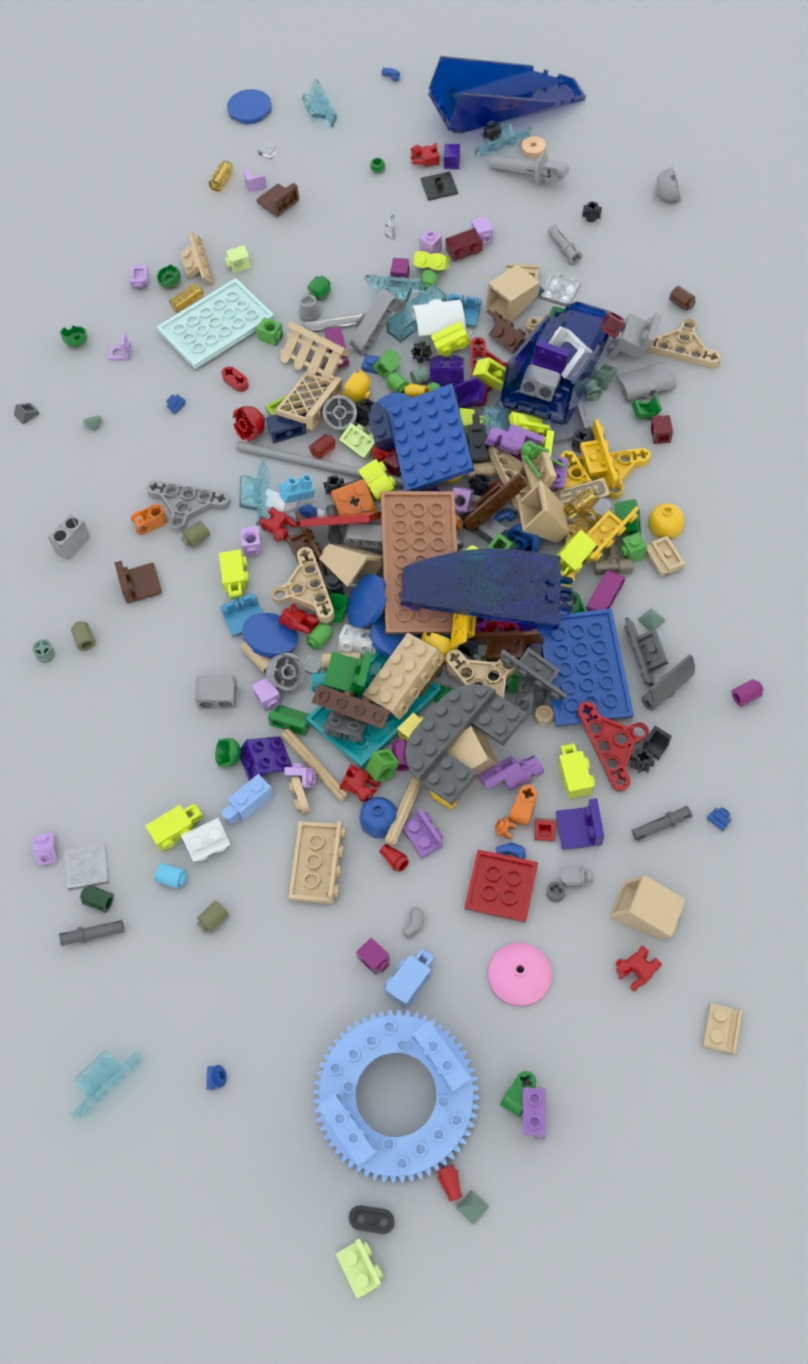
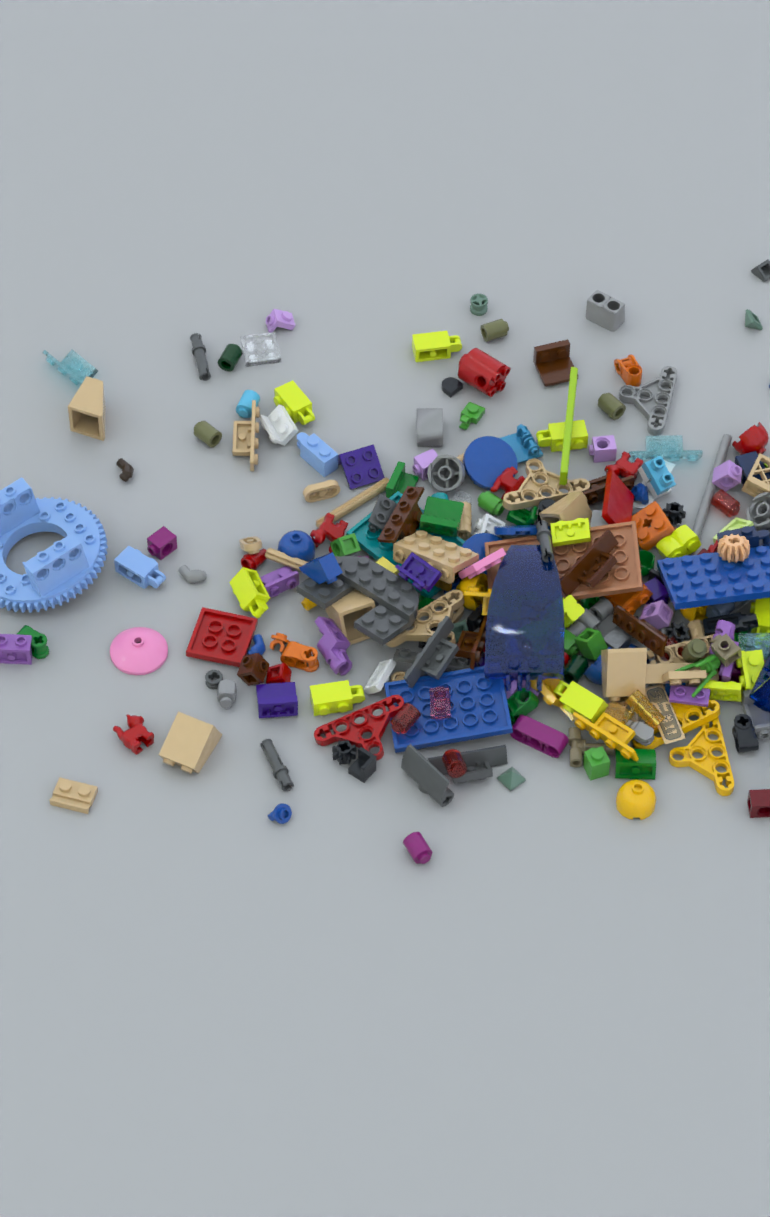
camera: 85 degrees right, 10 degrees down
(99, 691) = (434, 345): none -> neon yellow brick
(147, 641) = (483, 372): none -> red cylinder
(155, 676) = (451, 386): none -> black tile
(174, 1048) = (88, 409): none -> tan slope
(196, 656) = (471, 413): none -> bright green plate
(216, 1077) = (68, 442): blue plate -> none
(222, 873) = (244, 437): none -> tan bracket
(227, 752) = (365, 438): green hair -> none
(233, 560) = (568, 426): none -> lime tile
(260, 1004) = (127, 469): none -> dark brown arm
(292, 441) = (727, 475): none -> lavender brick
(308, 774) = (339, 492): lavender bracket -> none
(317, 862) = (254, 504): tan bracket -> none
(382, 857) = (251, 544): none -> tan plate
(389, 547) = (570, 532): none -> neon yellow bracket
(397, 568) = (544, 537): none -> dark grey pin
(402, 423) = (733, 548): none -> light nougat gear
(426, 623) = (482, 565): none -> bright pink plate
(433, 525) = (591, 565): none -> reddish brown bracket
(434, 774) = (322, 569): none -> blue slope
(435, 684) = (419, 571): none -> dark purple bracket
(446, 856) = (250, 592): none -> neon yellow brick
(517, 460) = (694, 650): none -> olive brick
(524, 430) = (725, 655): none -> dark tan brick
(544, 731) = (380, 676): none -> white plate
(547, 855) = (253, 669): none -> reddish brown brick
(587, 669) = (440, 702): none -> clear pink bracket
(597, 456) = (713, 732): yellow bracket -> none
(607, 701) = (405, 718): none -> clear red brick
(656, 657) = (454, 763): none -> clear red brick
(664, 556) = (589, 792): tan plate -> none

